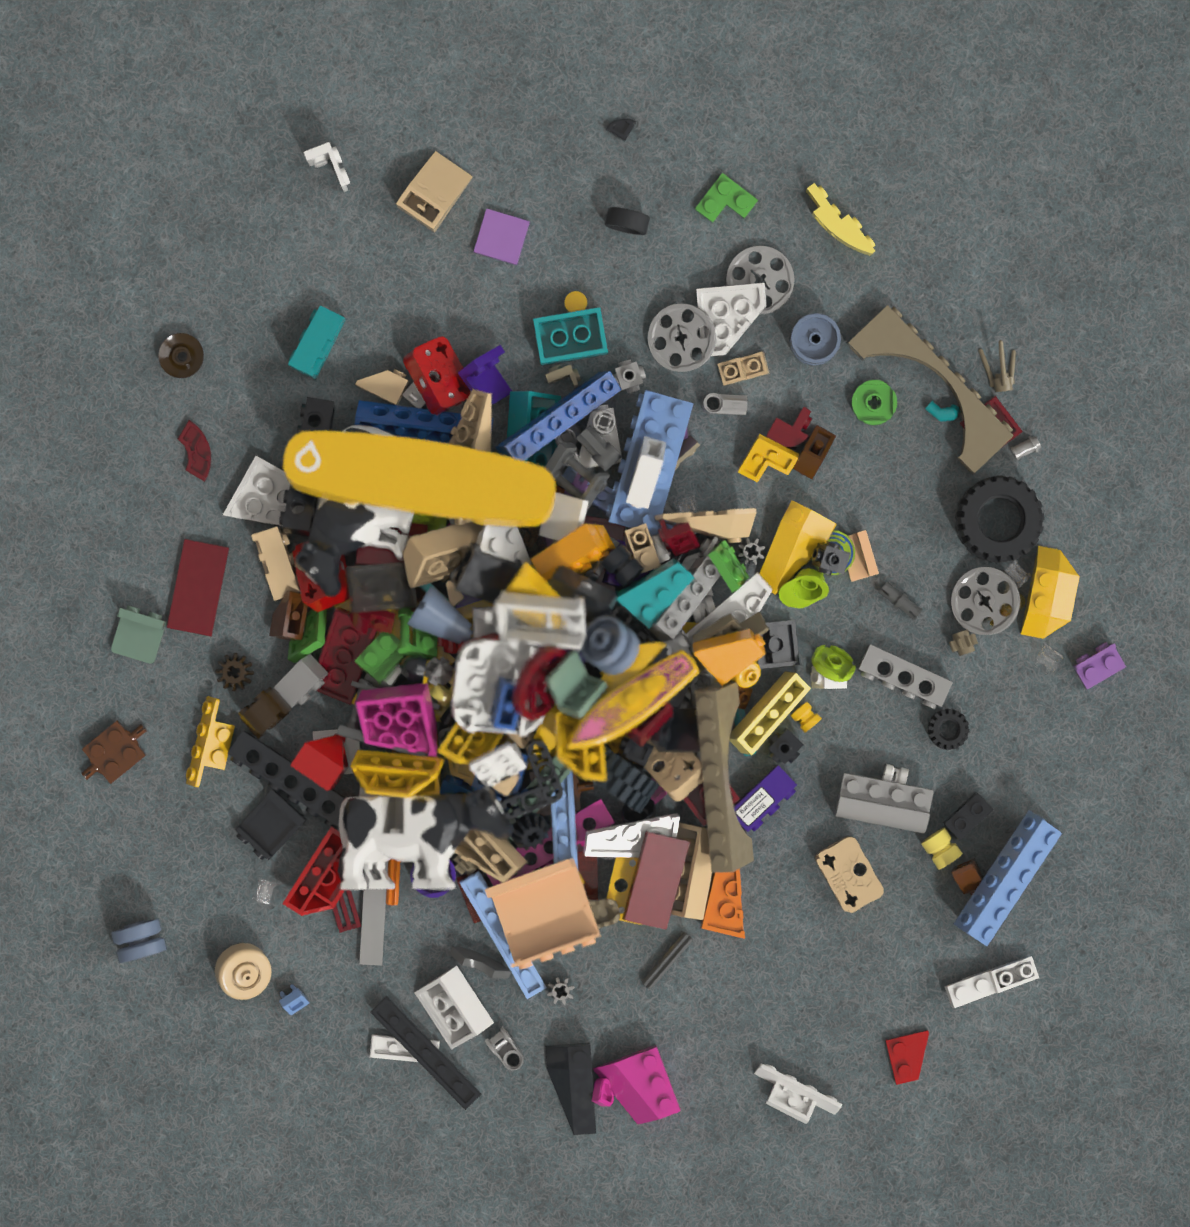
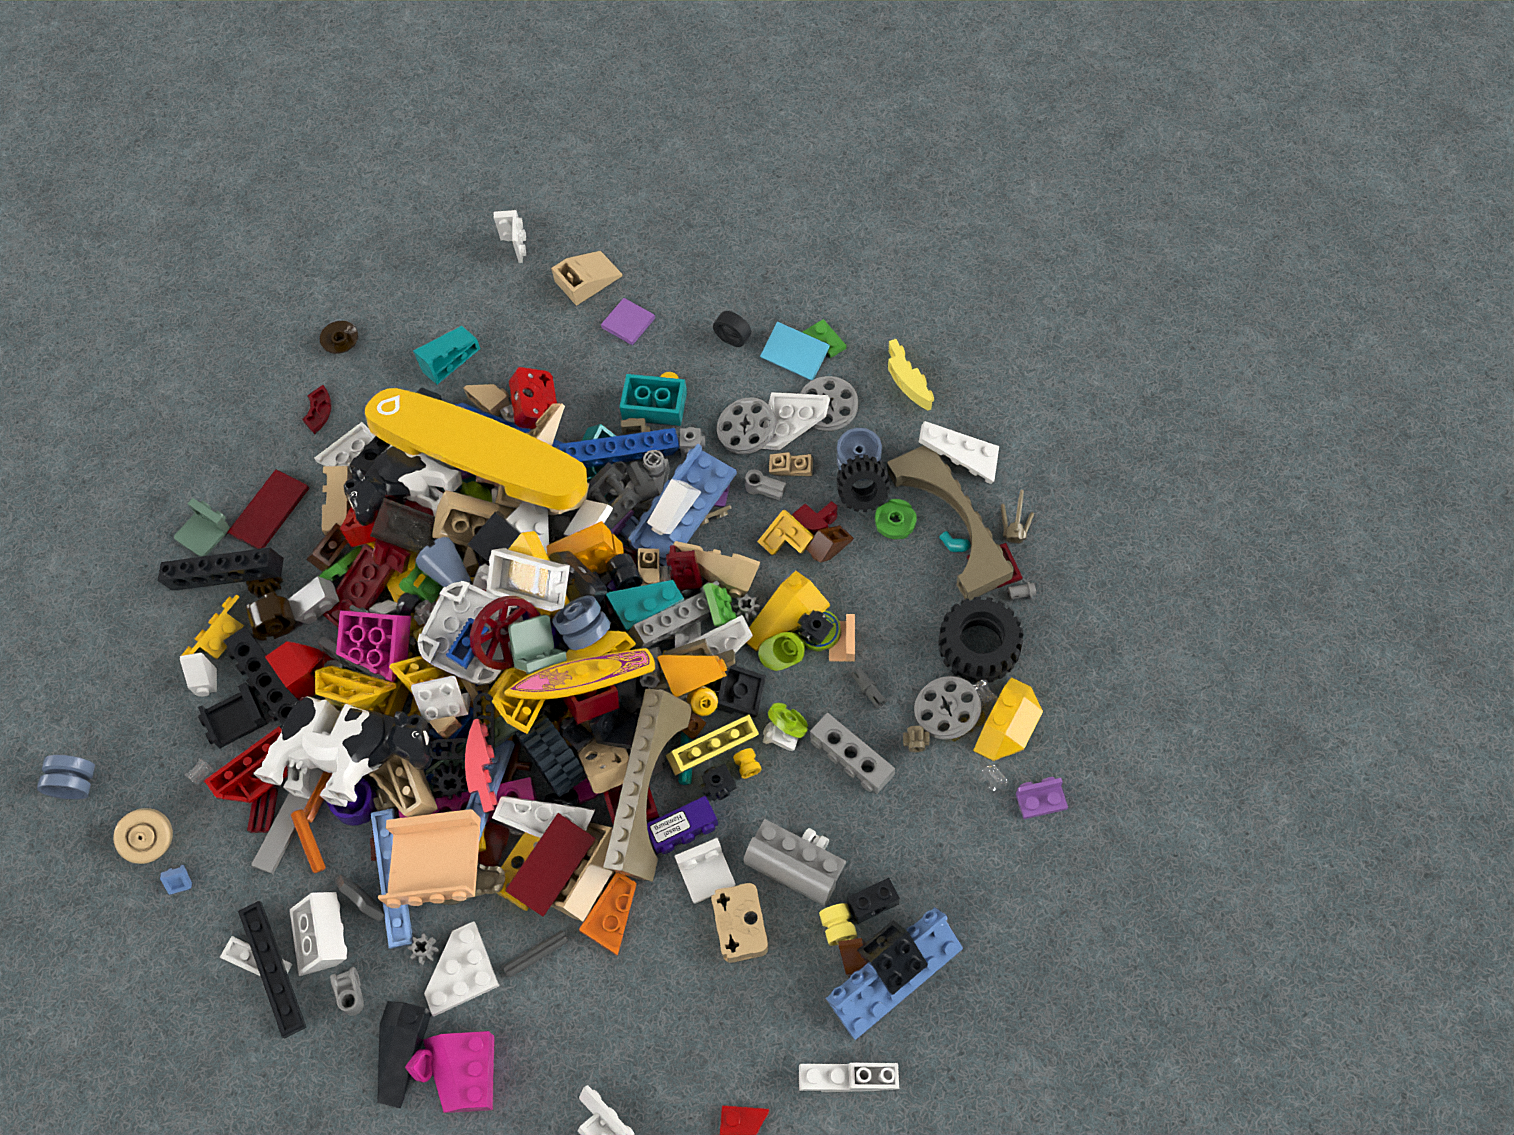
camera: 25 degrees right, 25 degrees down
(114, 752) = (134, 617): reddish brown plate -> none
(189, 678) = (221, 569): none -> black brick
(220, 796) = (199, 674): none -> white slope
(381, 657) = (383, 592): bright green plate -> none
(405, 925) = (308, 841): none -> orange axle
(485, 377) = (574, 400): dark purple bracket -> none
(554, 809) = (476, 757): none -> coral slope
(603, 998) = (461, 971): none -> white plate
(621, 128) = (753, 272): black tile -> none
(704, 226) = (795, 351): none -> medium azure tile
(801, 836) = (704, 870): none -> white bracket
(832, 380) = (863, 497): none -> black tyre
(923, 302) = (970, 452): none -> white wing
(934, 729) = (878, 801): black tyre -> none
(1004, 870) = (893, 956): none -> black bracket

